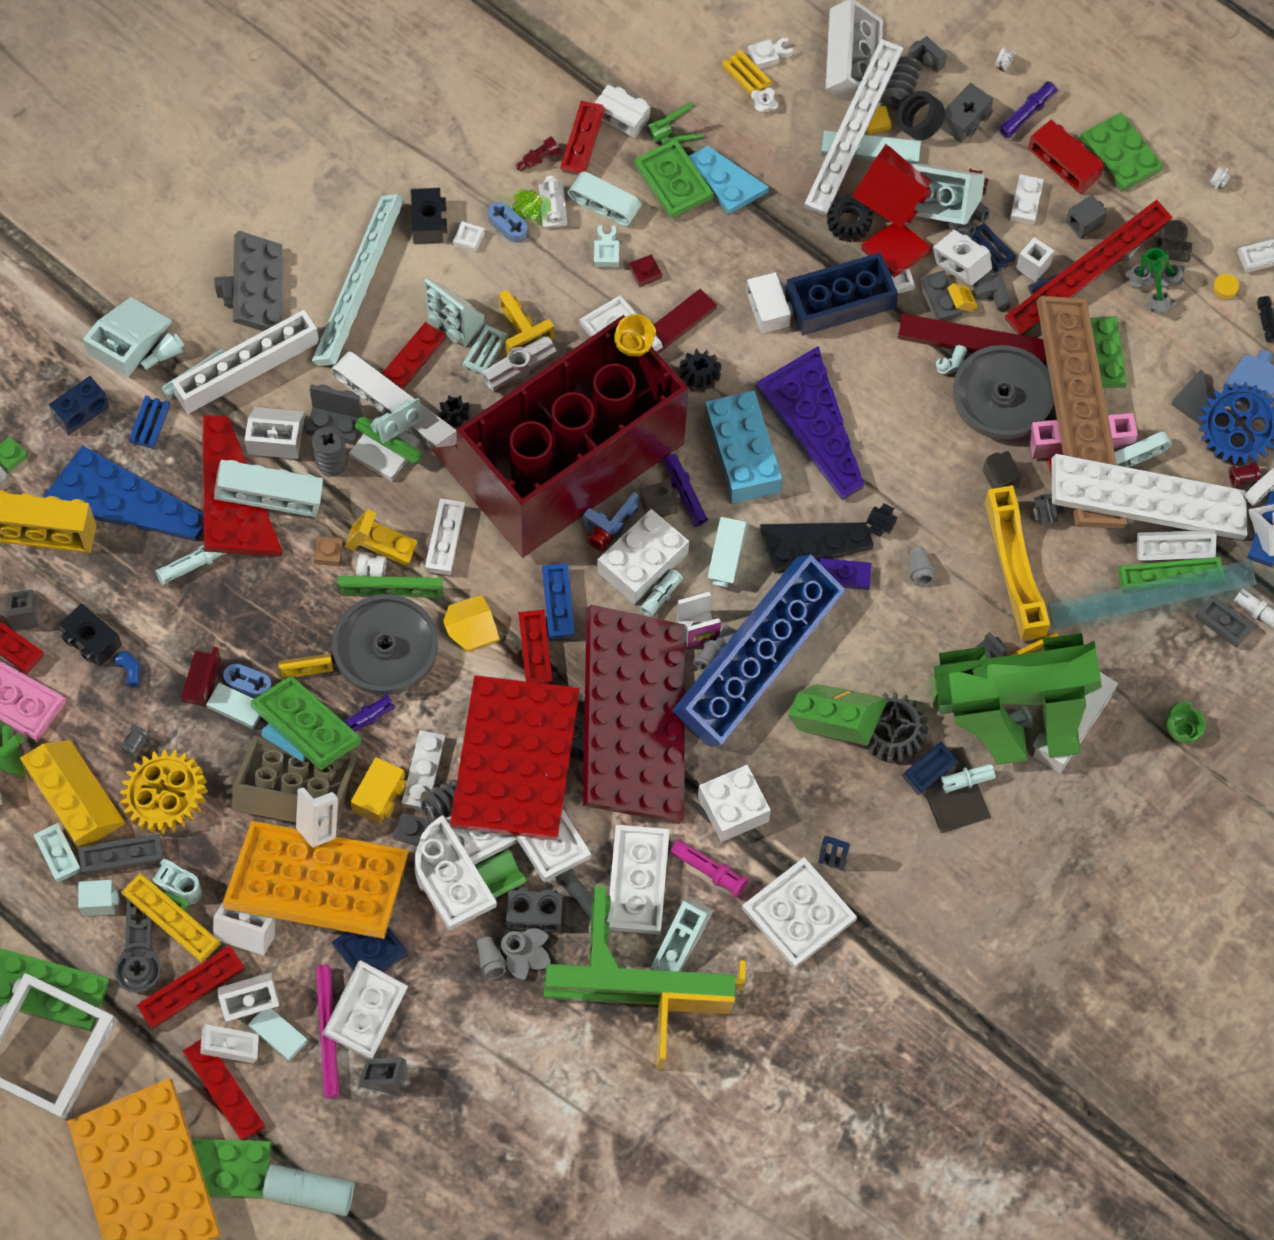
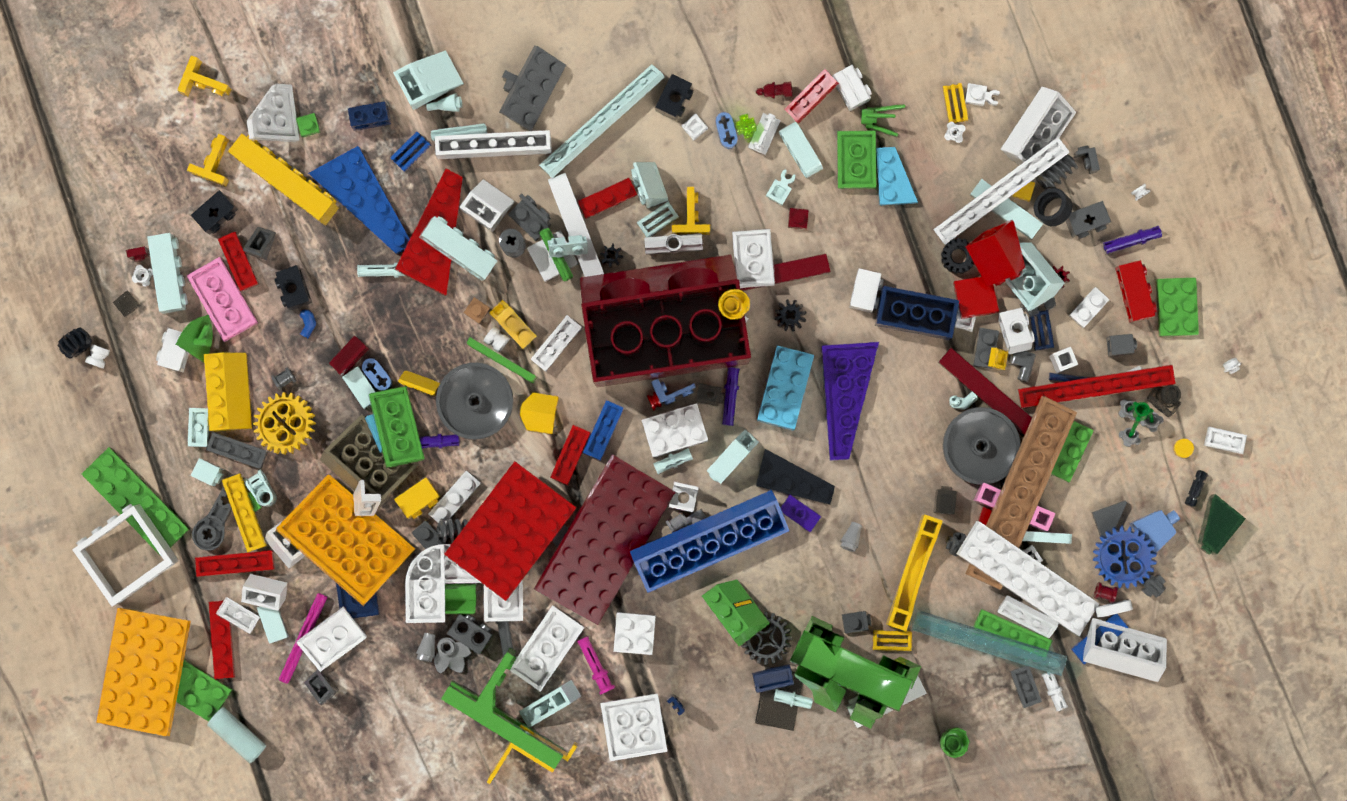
camera: 35 degrees right, 20 degrees up
(882, 520) = (845, 491): black gear -> none

